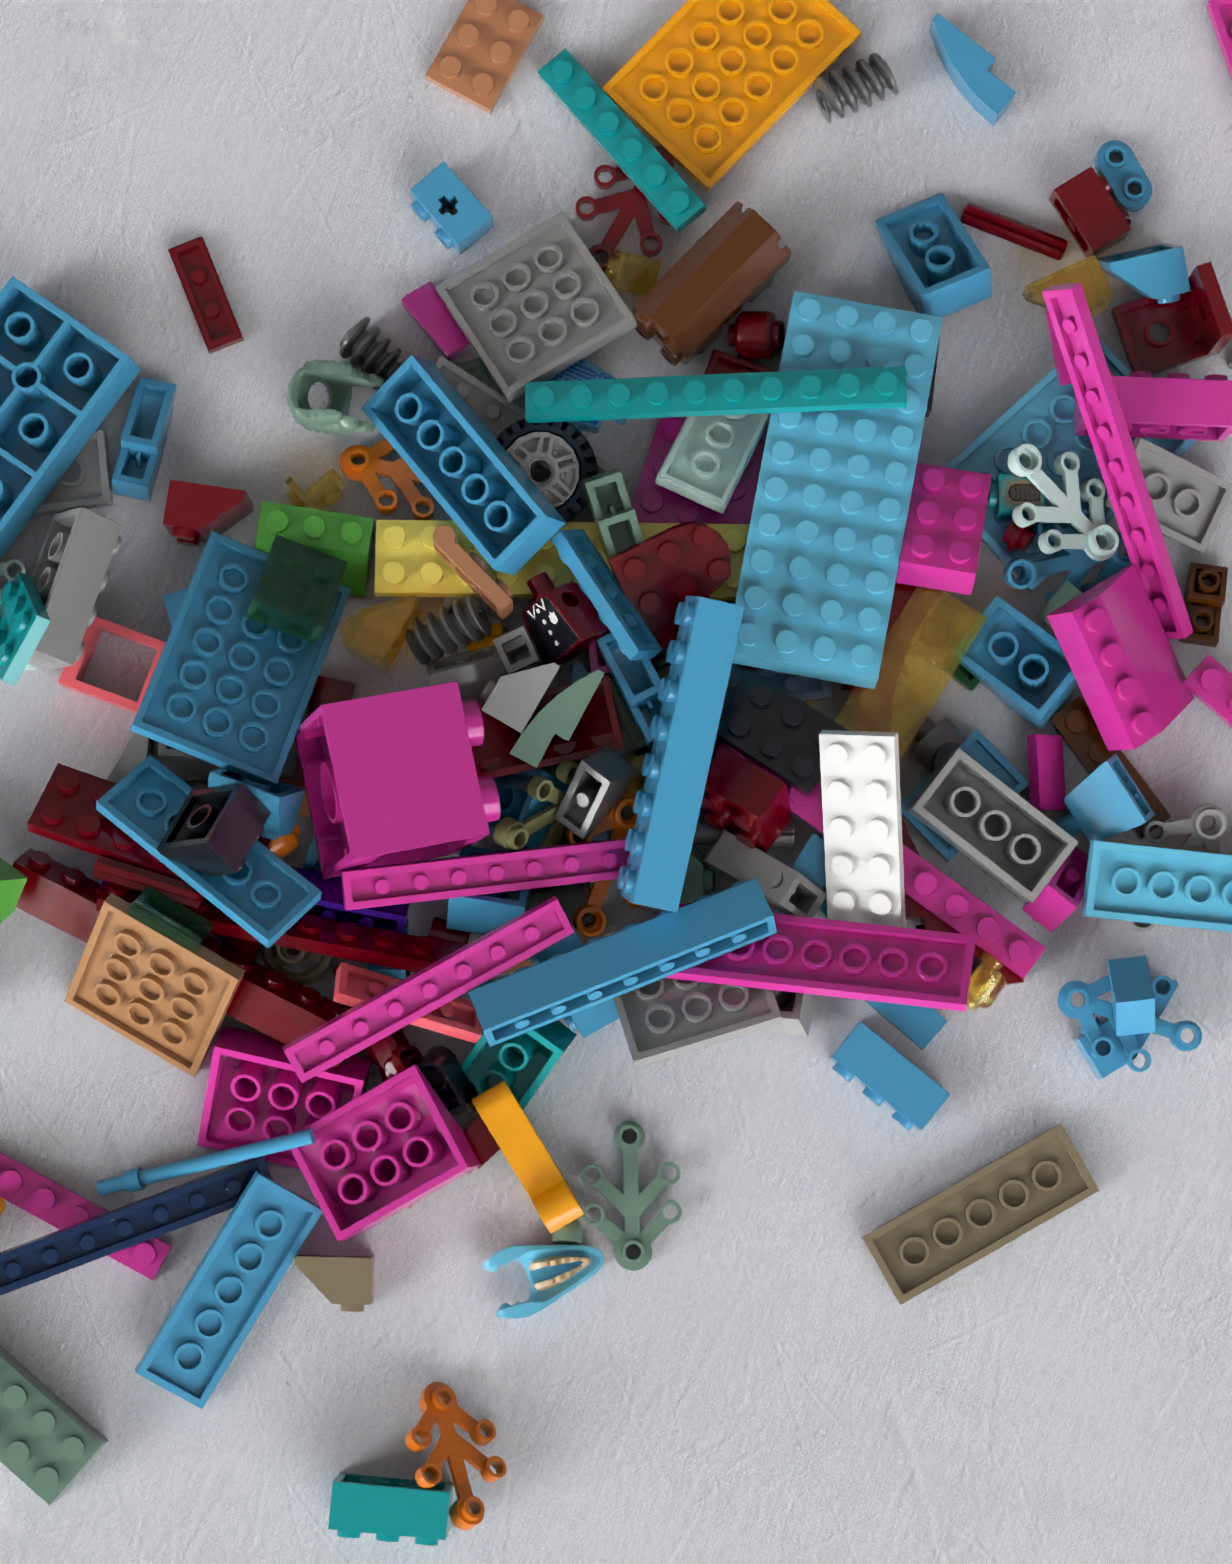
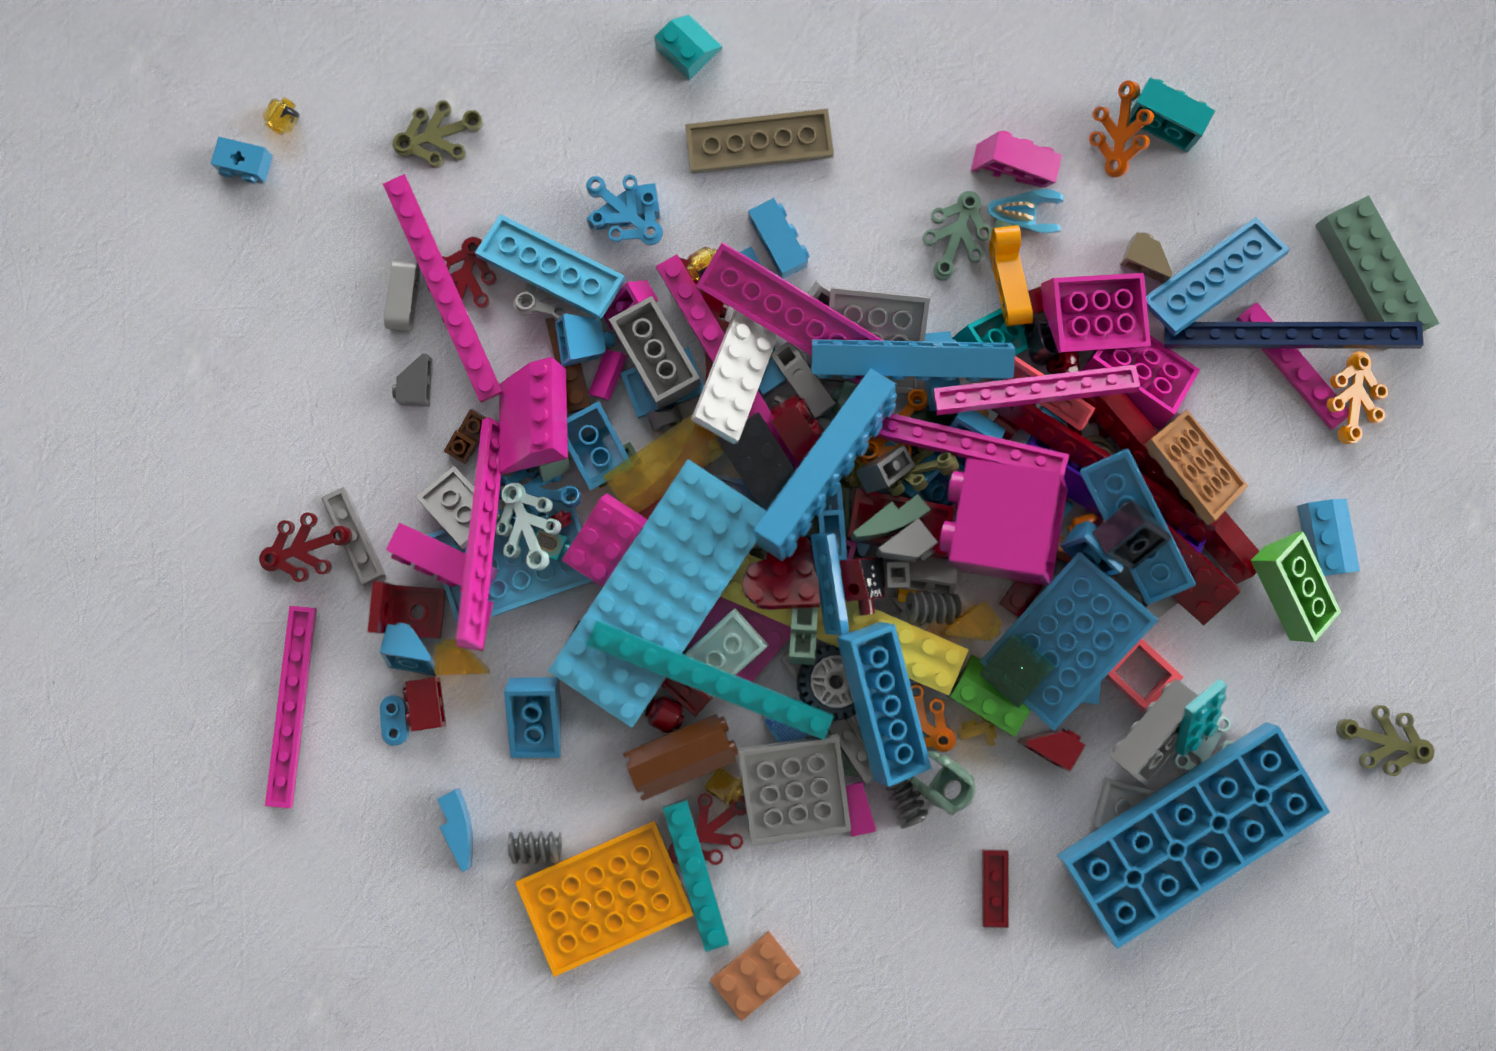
camera: 160 degrees left, 0 degrees up
(137, 1178) = (1243, 363): dark azure bar -> none
(138, 878) = (1182, 527): dark red axle -> none
(144, 439) = (1070, 810): dark azure slope -> none
(170, 918) = (1177, 494): clear green tile -> none
(444, 188) = (825, 892): dark azure brick -> none
(472, 572) = (905, 634): nougat plate -> none
(588, 1344) = (1017, 158): none -> dark pink wedge
(1014, 231) = (494, 731): dark red axle -> none
(1131, 995) = (617, 219): dark azure slope -> none
(1149, 1317) = (686, 45): none -> teal slope

